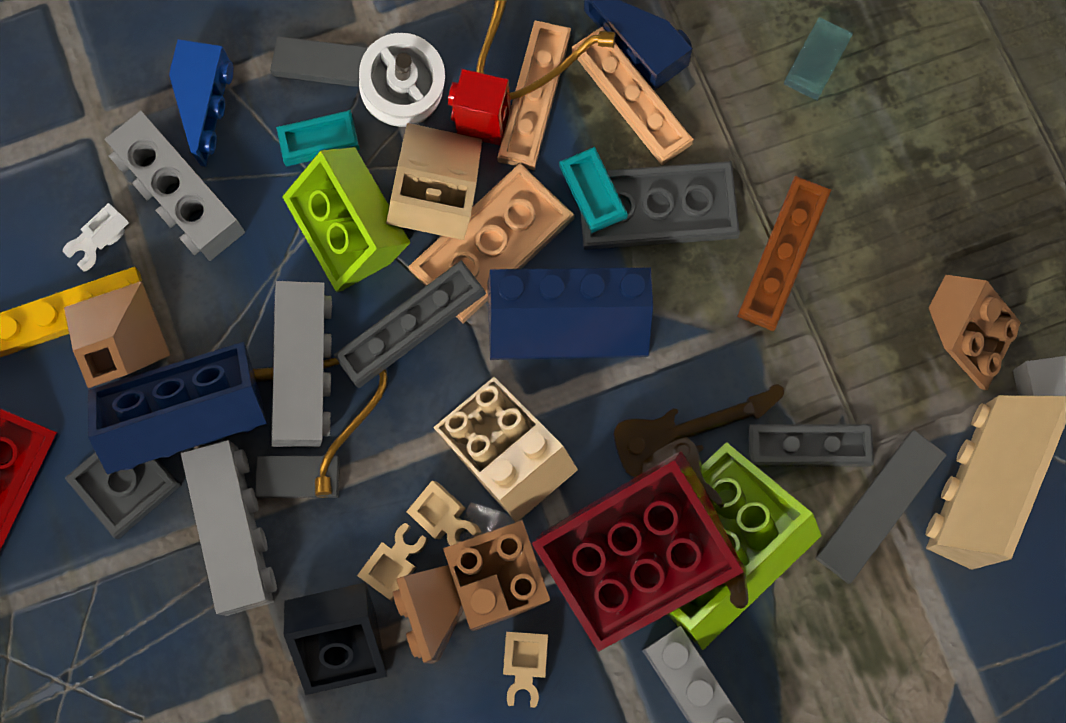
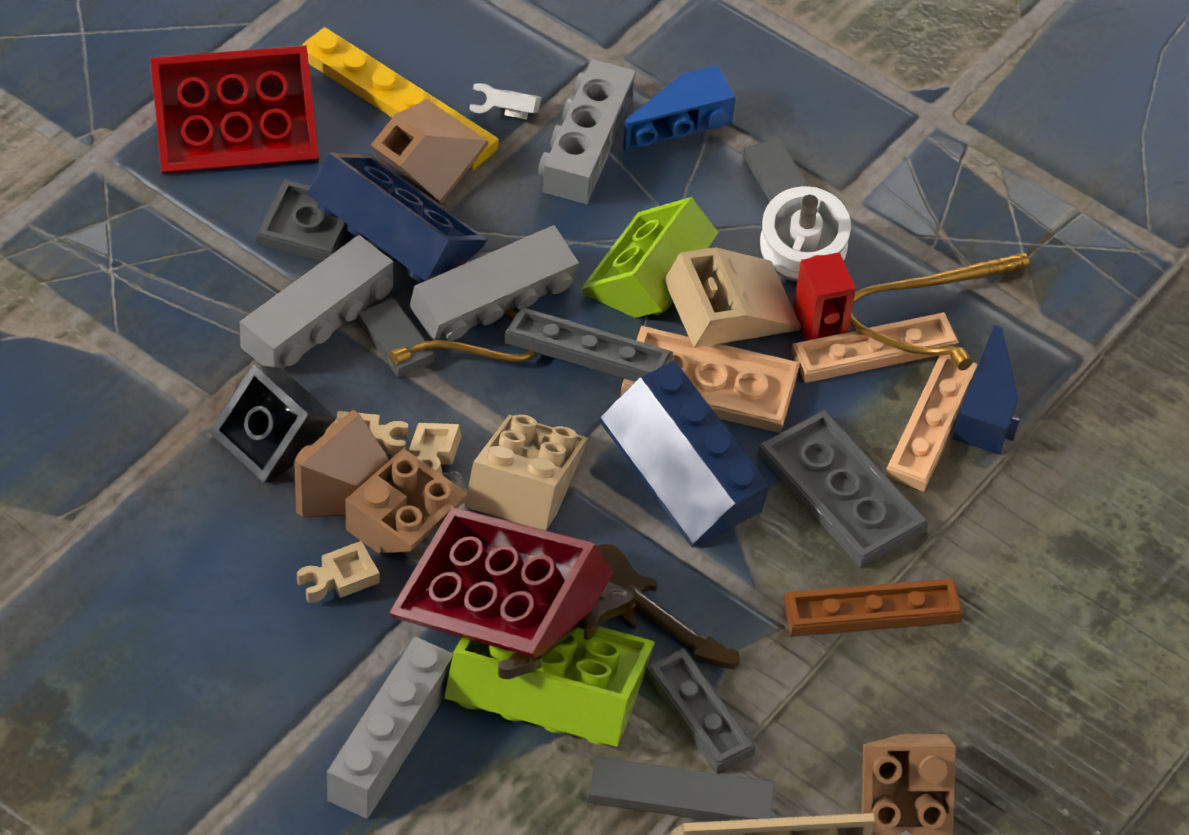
camera: 50 degrees right, 25 degrees down
(305, 139) = (724, 216): teal tile -> none
(593, 190) = (814, 423): teal tile -> none
(818, 58) = (1088, 550): clear light blue tile -> none

